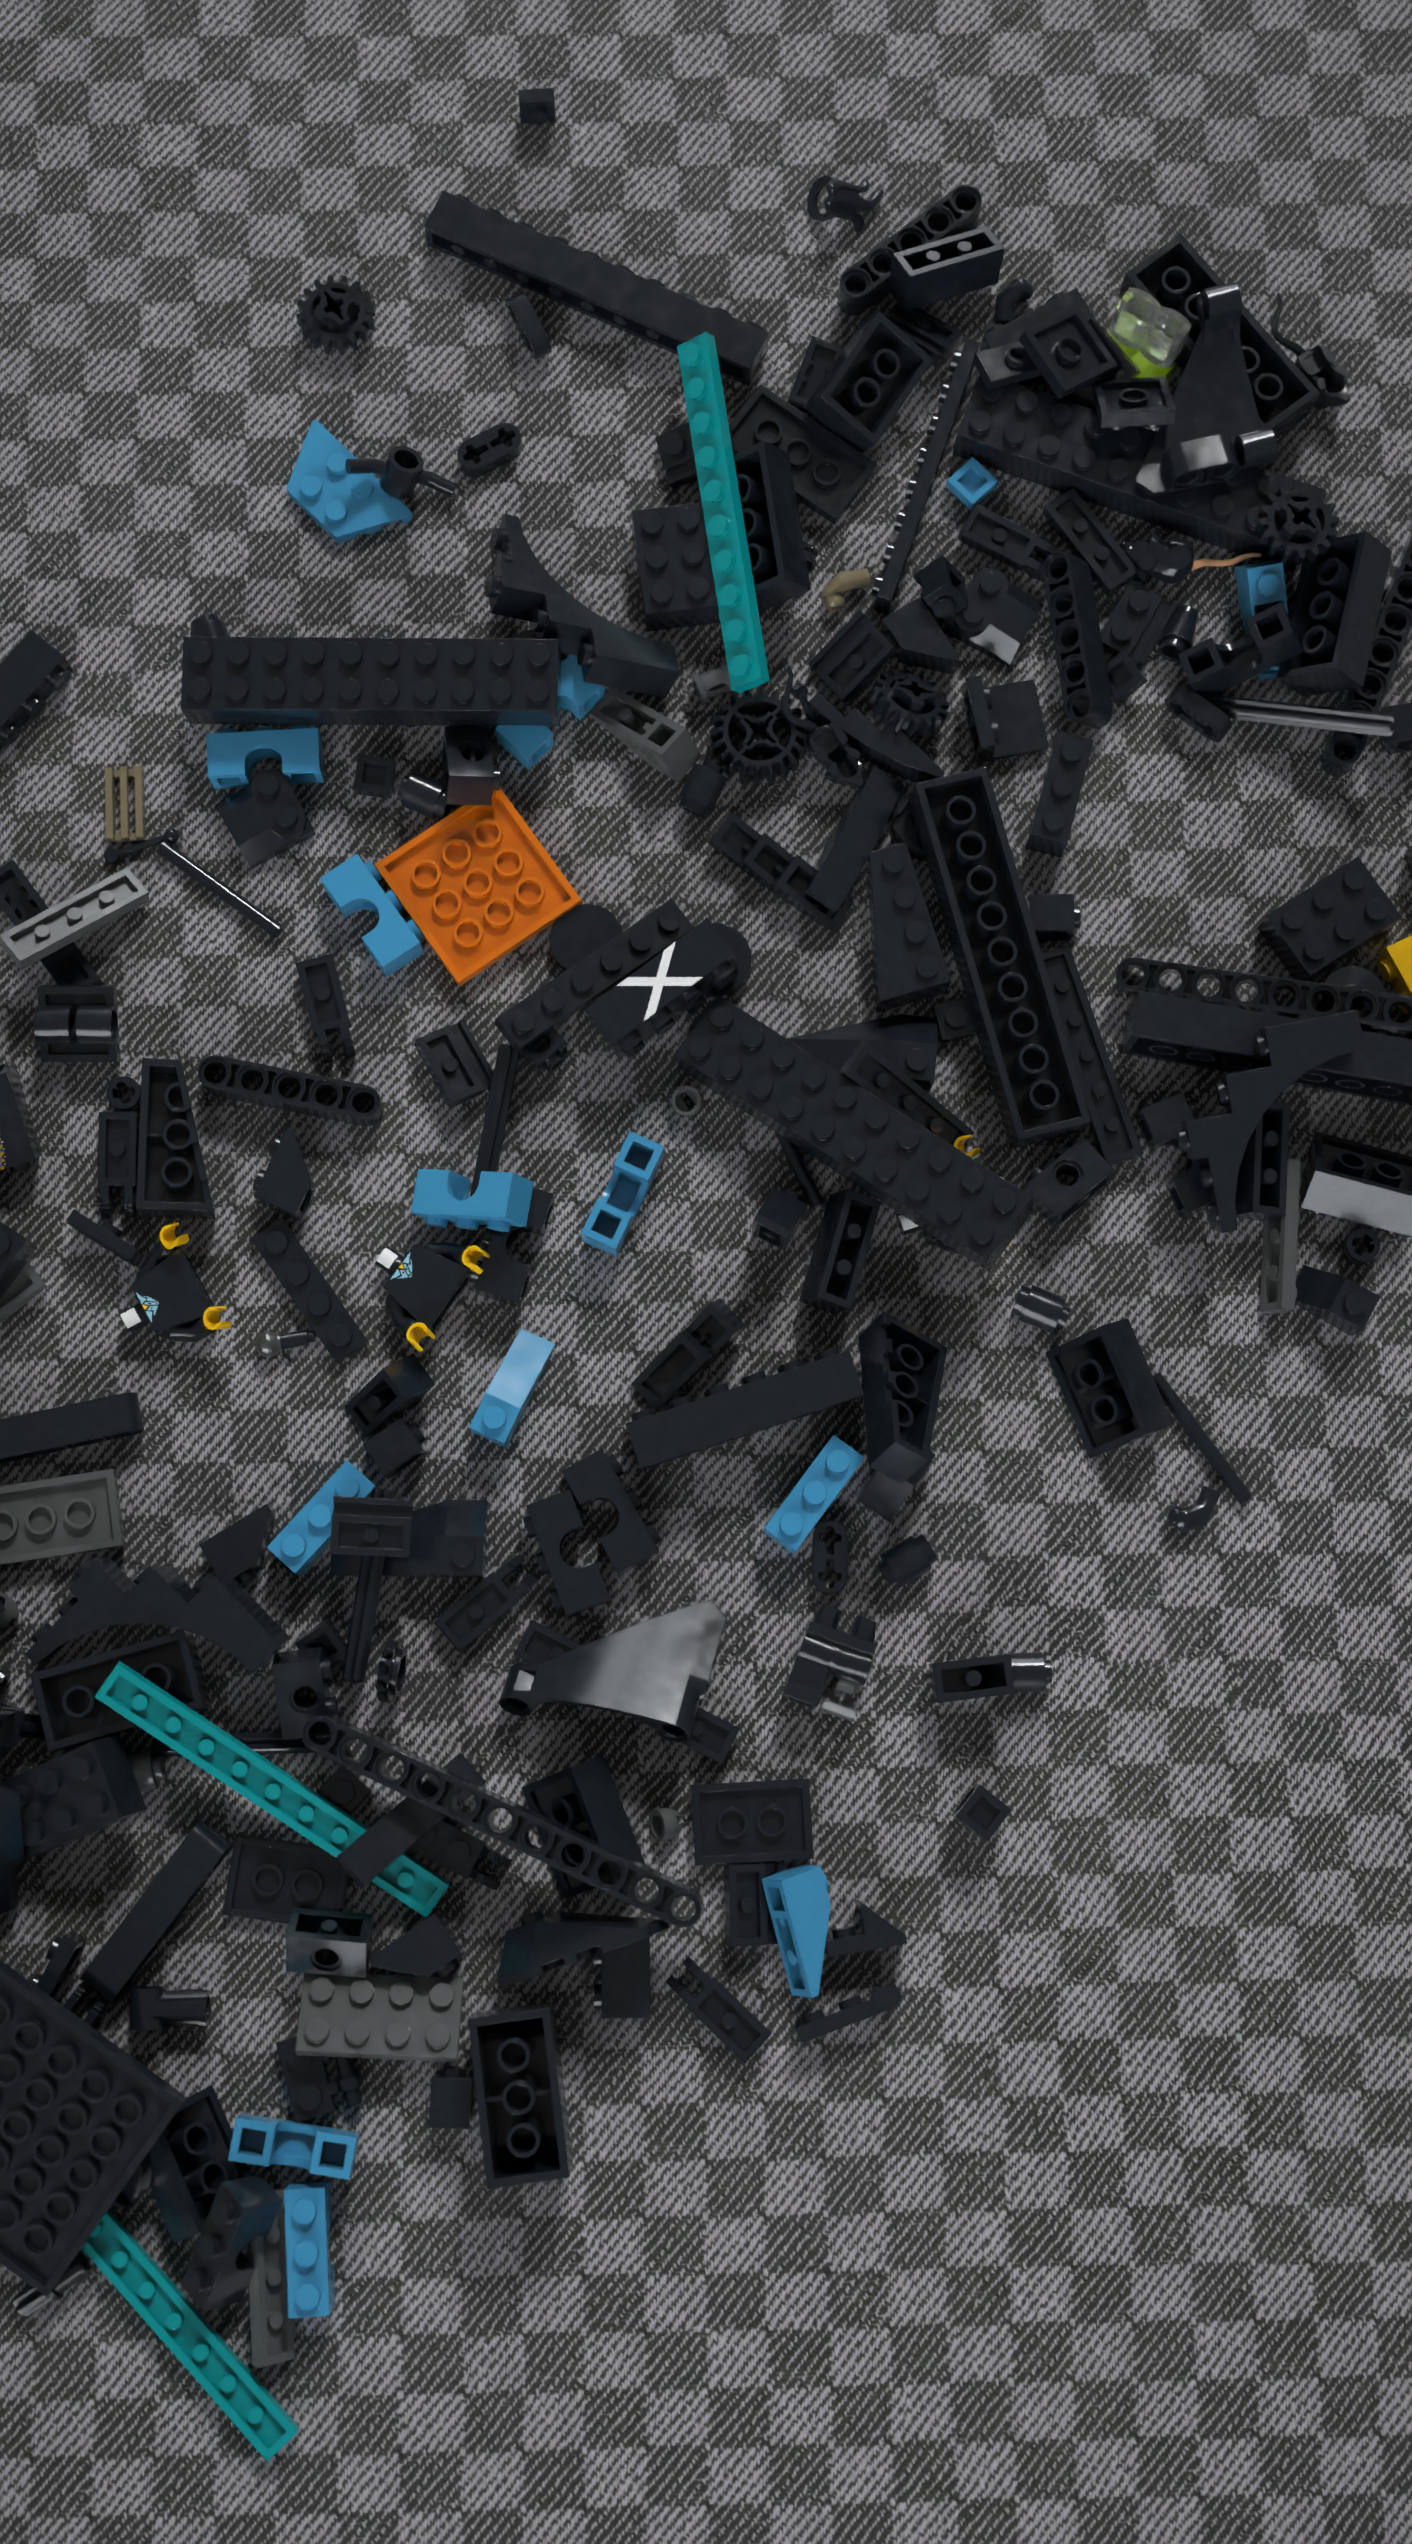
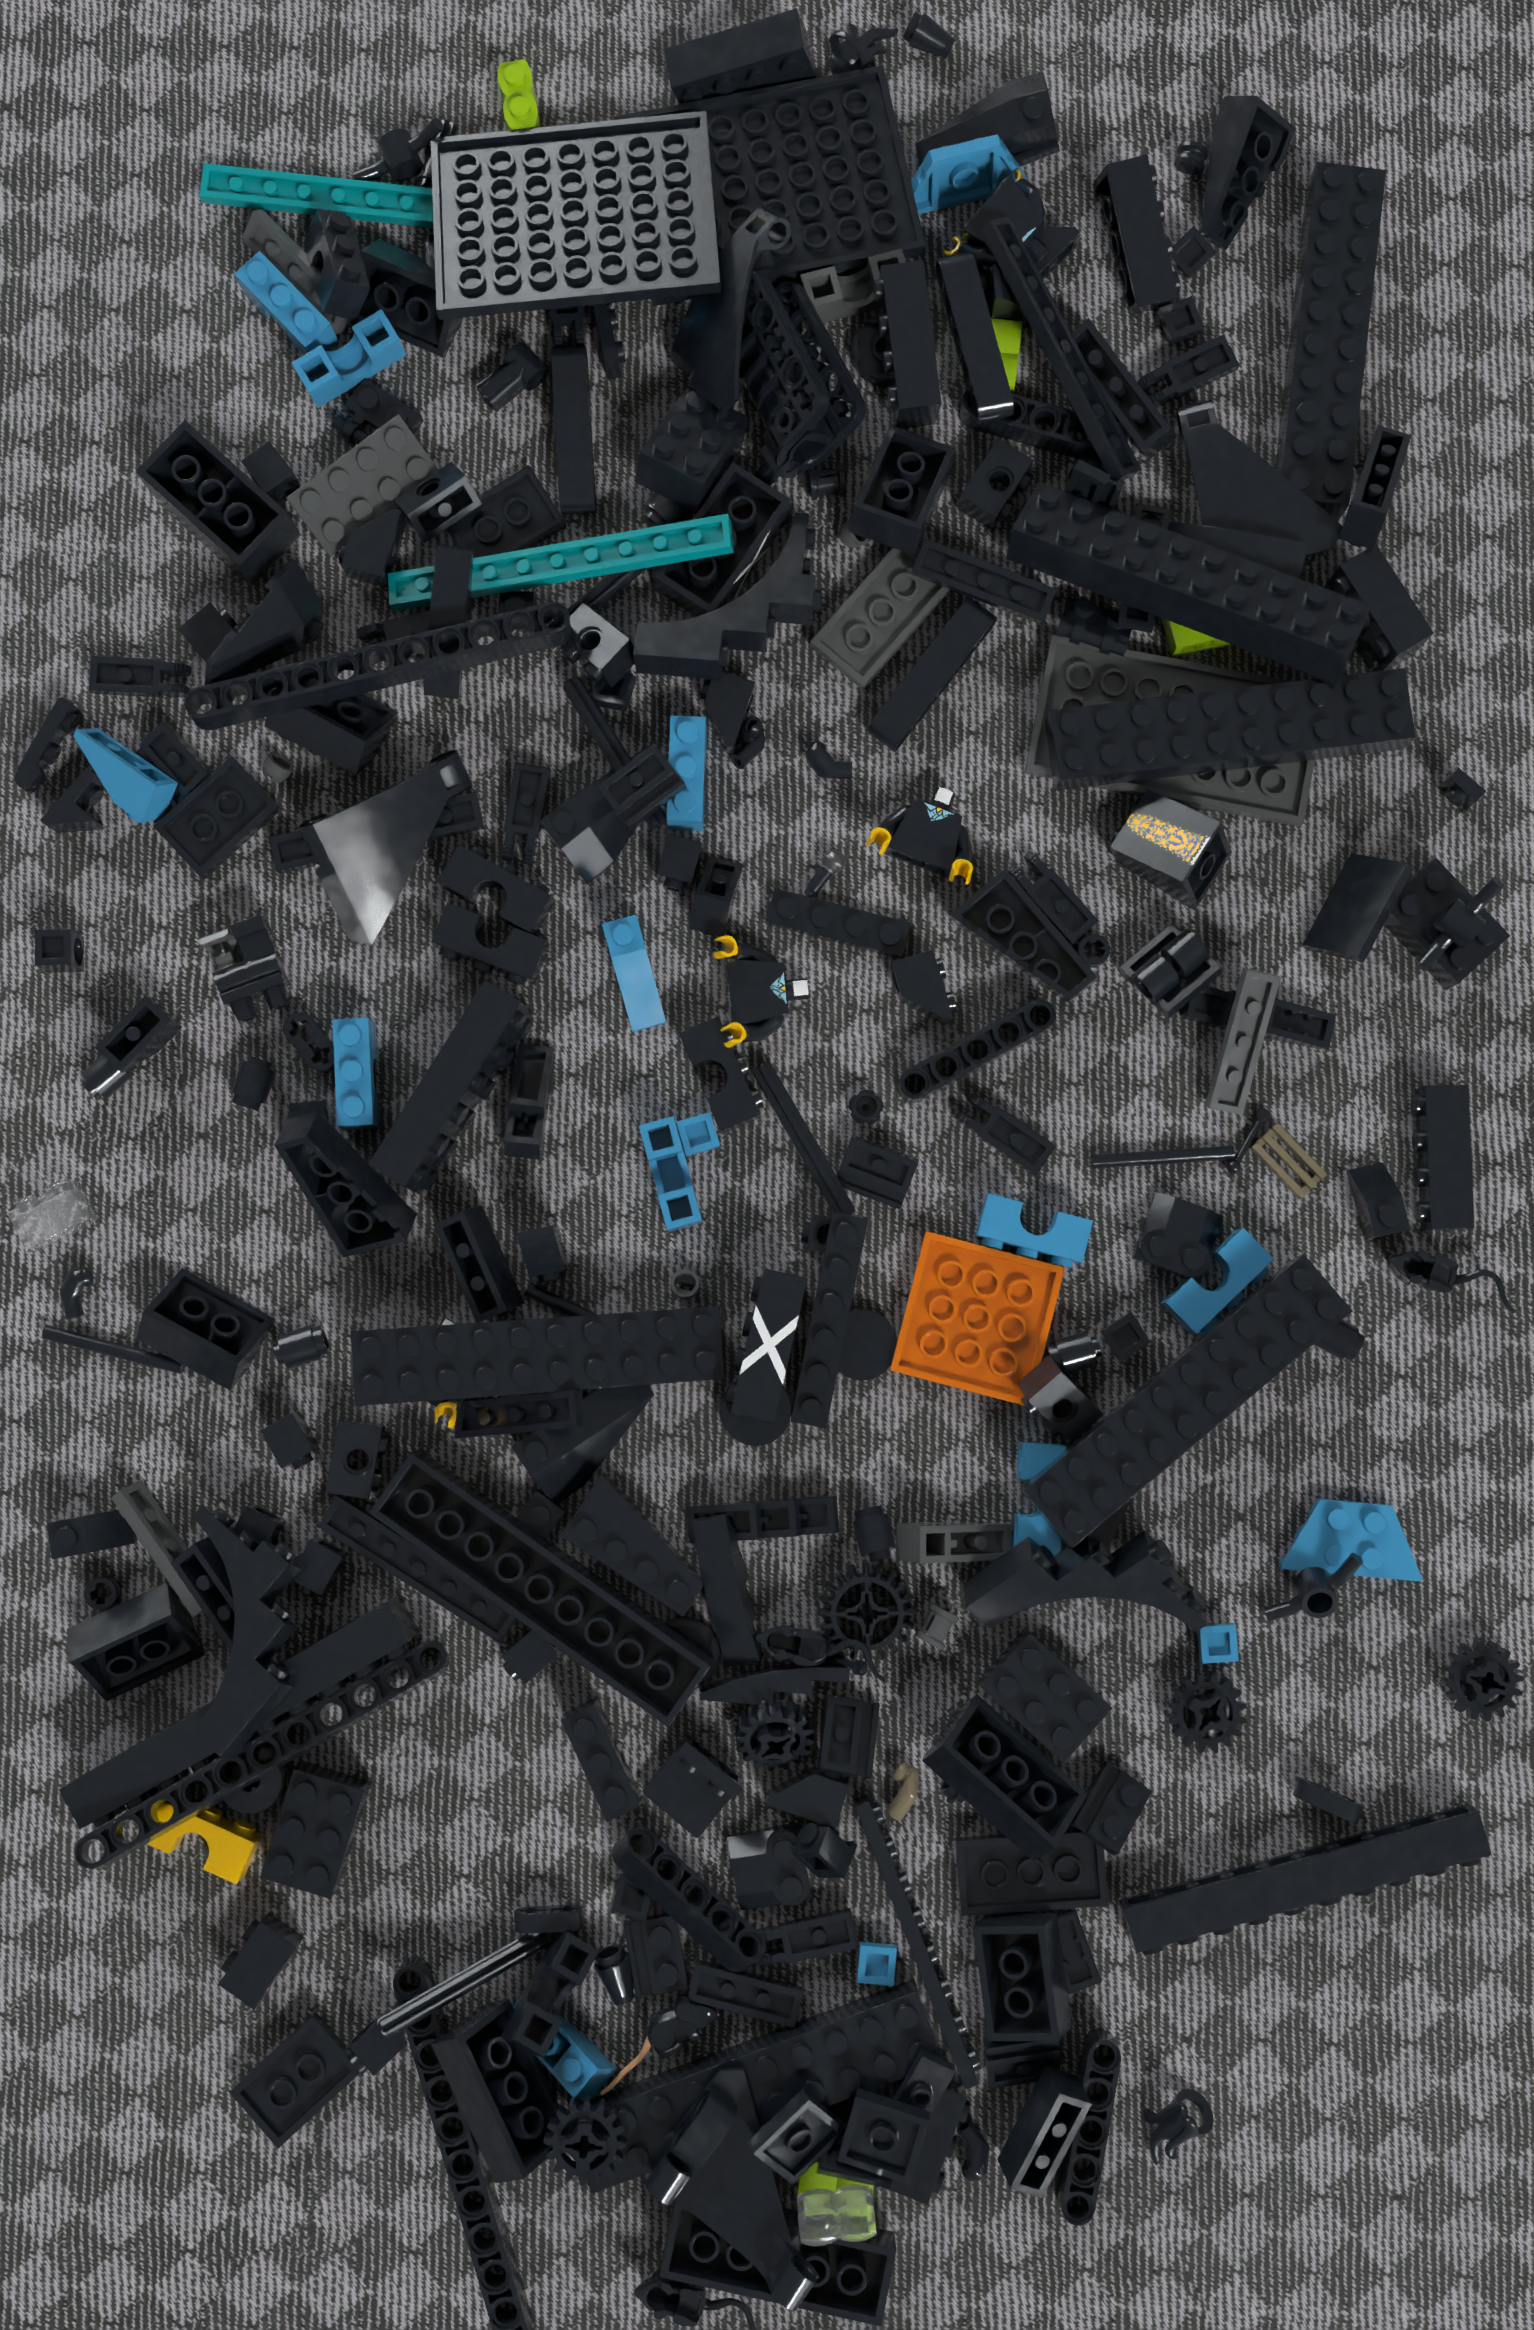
camera: 145 degrees right, 5 degrees up
(85, 714) = (1377, 1201): none -> black slope
(85, 2313) = (400, 153): none -> black piece
(90, 623) = (1438, 1273): none -> black animal
(106, 1236) = (1013, 838): black plate -> none
(204, 1431) = (824, 765): none -> black arm
(248, 1501) = (751, 740): none -> black arm
(391, 1671) = (549, 709): black gear -> none
(415, 1113) = (875, 1107): none -> black plate
(489, 449) = (1277, 1674): black beam -> none
(498, 1202) = (751, 1087): dark azure arch -> none
(509, 497) = (1218, 1643): none -> dark azure plate
(537, 105) = (1485, 1996): black plate -> none
(562, 473) = (1199, 1724): none -> black gear
(571, 1211) = (698, 1134): none -> dark azure plate
(723, 513) = (1042, 1767): teal plate -> none
(1110, 1238) = (291, 1441): none -> black brick
(1164, 1589) = (52, 1215): none -> clear brick

